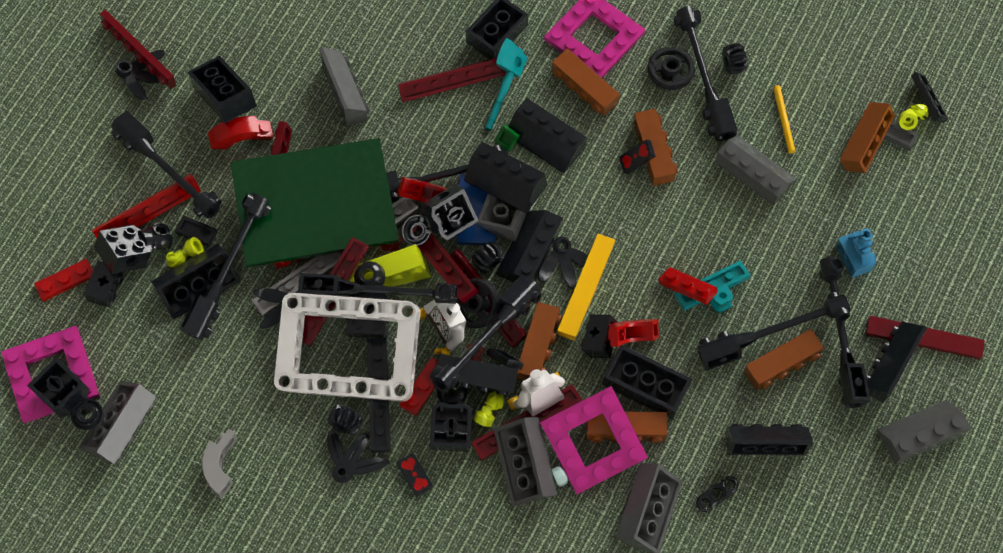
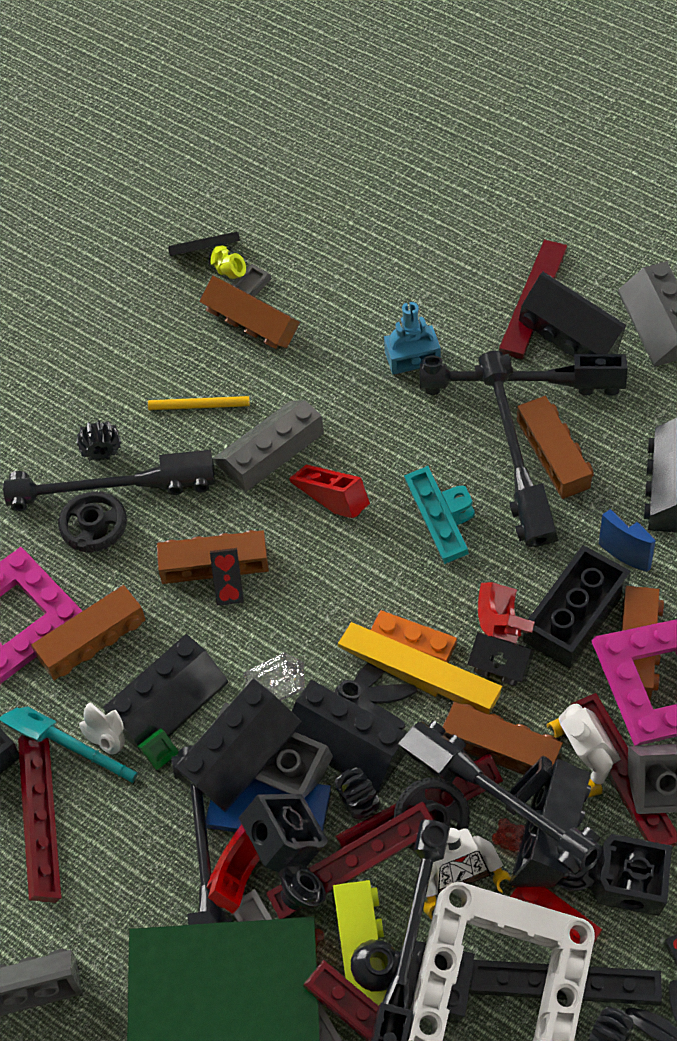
camera: 75 degrees left, 10 degrees down
(484, 416) = (609, 823): neon yellow arm -> none
(515, 102) = (103, 729): none -> white plate
(563, 198) = (280, 675): none -> clear hinge
(612, 282) = (415, 635): none -> orange plate
(688, 285) = (436, 538): red plate -> none
(704, 410) = (628, 544): none -> blue slope
(721, 214) = (334, 490): none -> red slope

